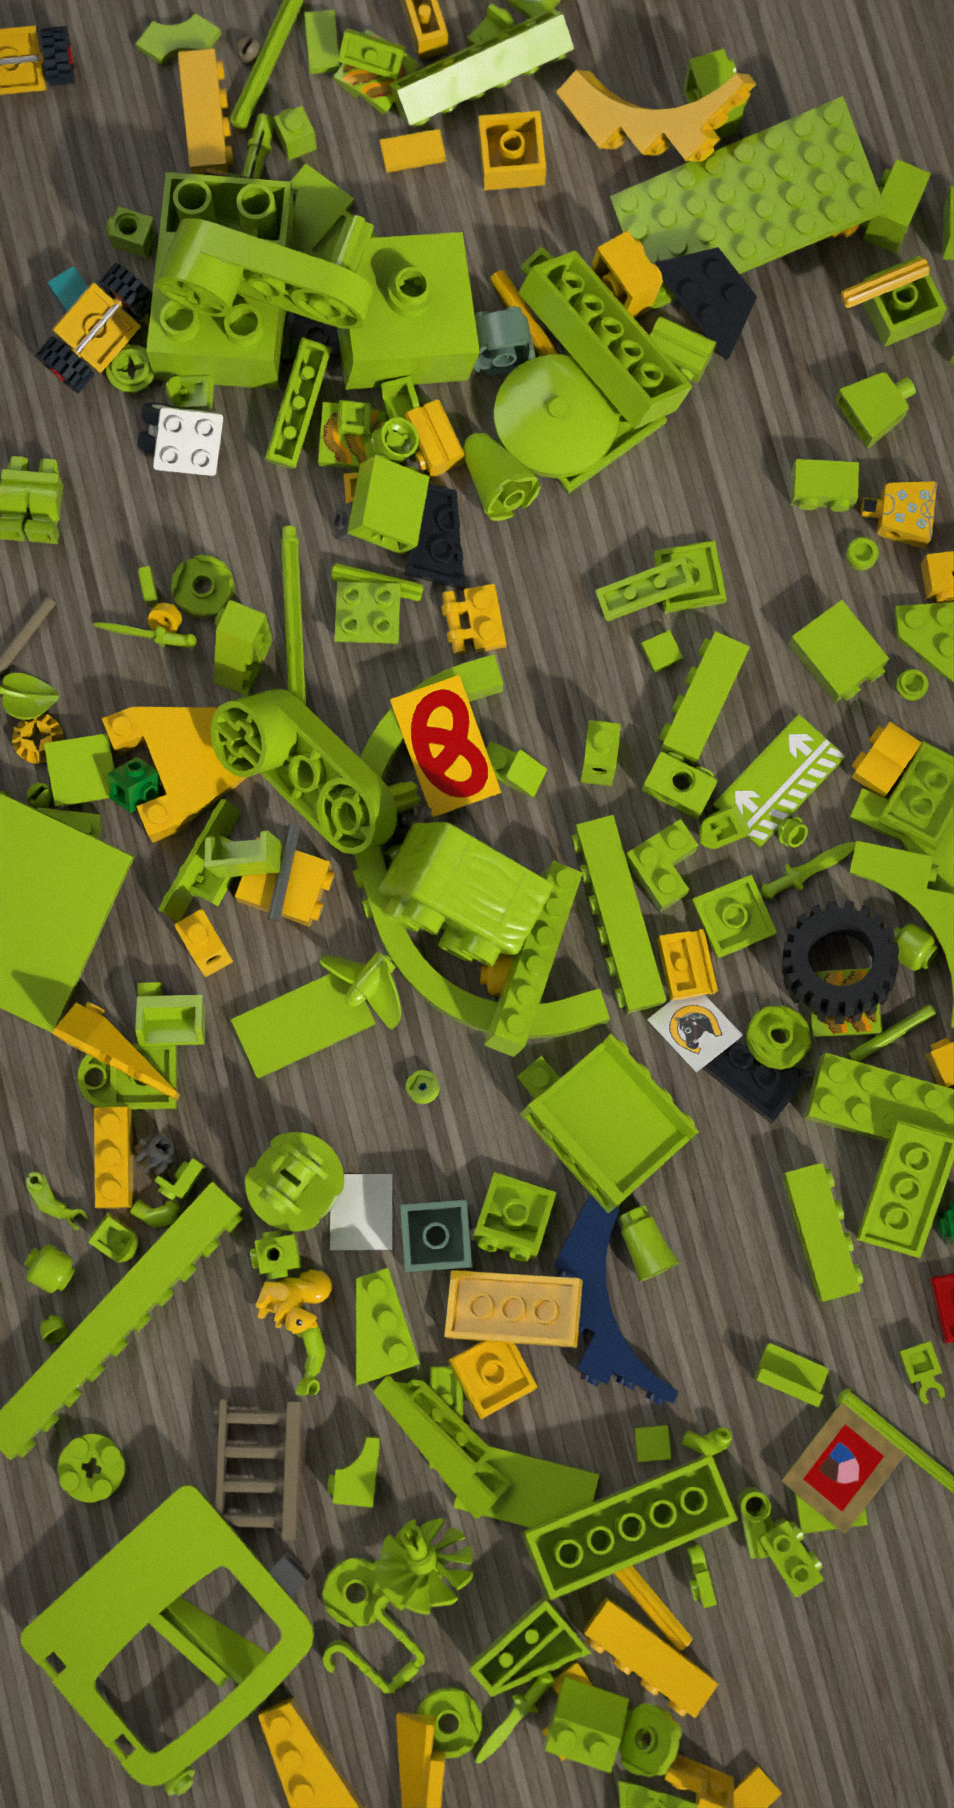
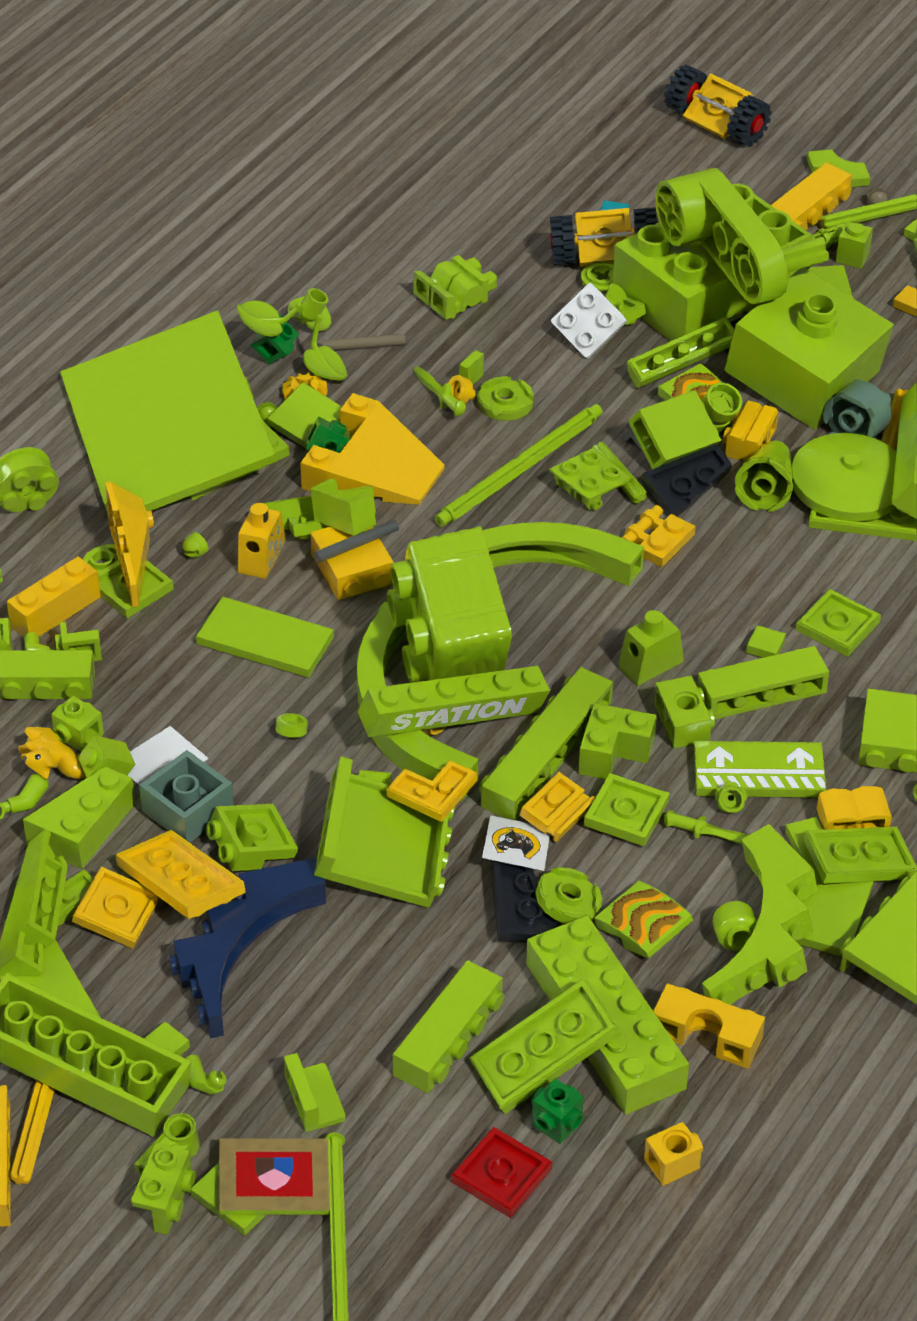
camera: 50 degrees right, 35 degrees down
(154, 1154) = (80, 615): dark grey gear -> none
(170, 1020) = (185, 563): lime panel -> none
(240, 646) = (486, 421): lime wedge -> none
(295, 1182) = (141, 695): lime piece -> none
(309, 768) = (443, 480): lime beam -> none
(340, 1265) = (108, 753): none -> lime brick
(353, 418) = (706, 378): lime tile -> none
(369, 982) = (330, 639): lime piece -> none
(399, 397) = (757, 390): lime panel -> none
(445, 745) = (549, 567): sticker -> none
(516, 769) = (580, 622): lime slope -> none
(612, 1057) = (433, 797): none -> yellow tile
(645, 588) = (796, 596): lime plate -> none
(646, 1244) = (314, 929): lime plant -> none
(701, 1586) = (83, 1148): lime plate -> none
(723, 828) = (681, 753): lime plate -> none
(834, 999) = (663, 901): black tyre -> none
(892, 1033) = (661, 969): lime bar -> none
(921, 1366) = (412, 1170): lime plate -> none

